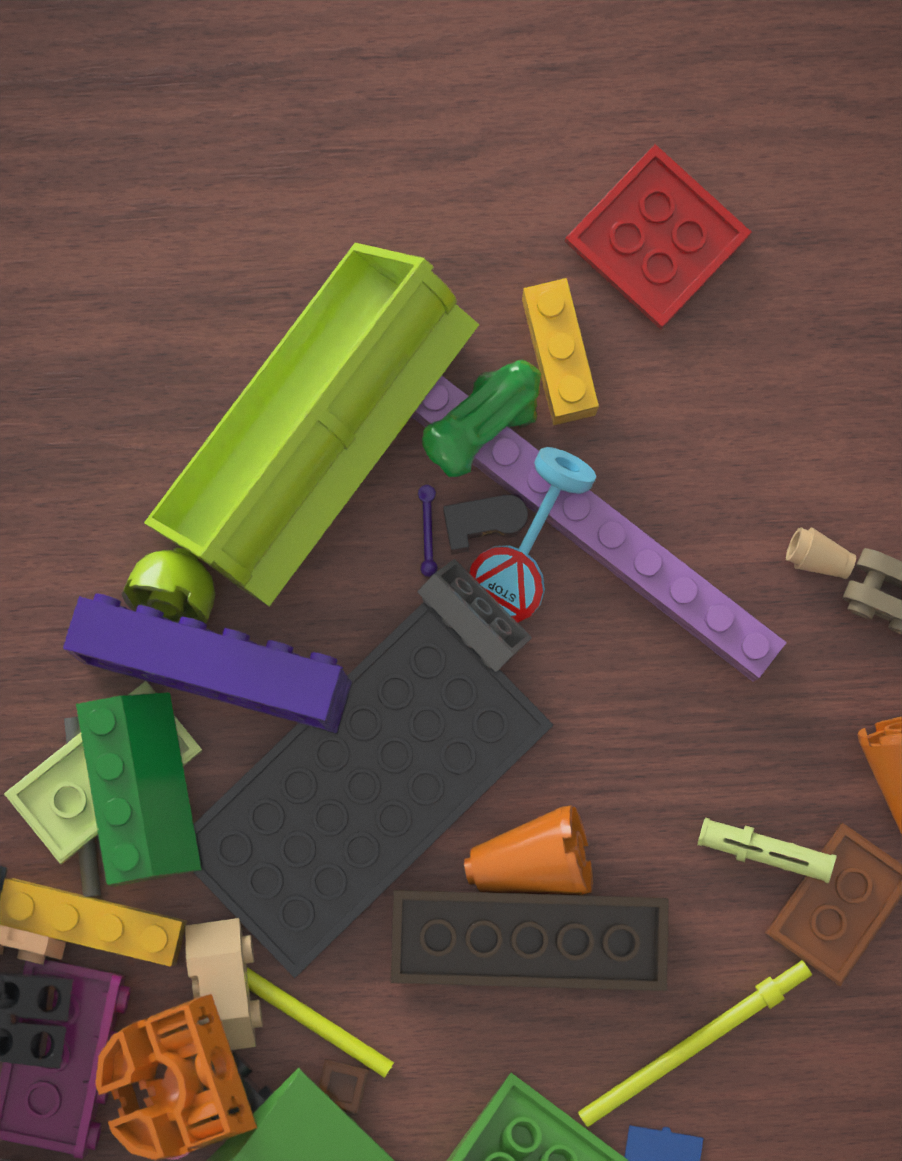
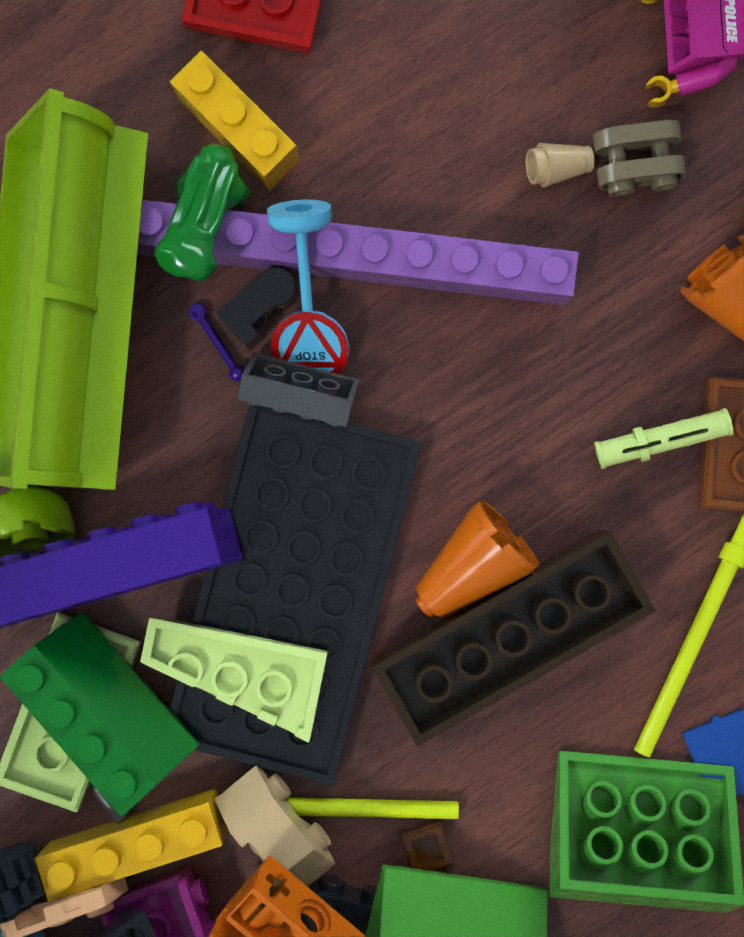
camera: 30 degrees left, 5 degrees up
(286, 835) = (252, 672): none -> yellowish green wing

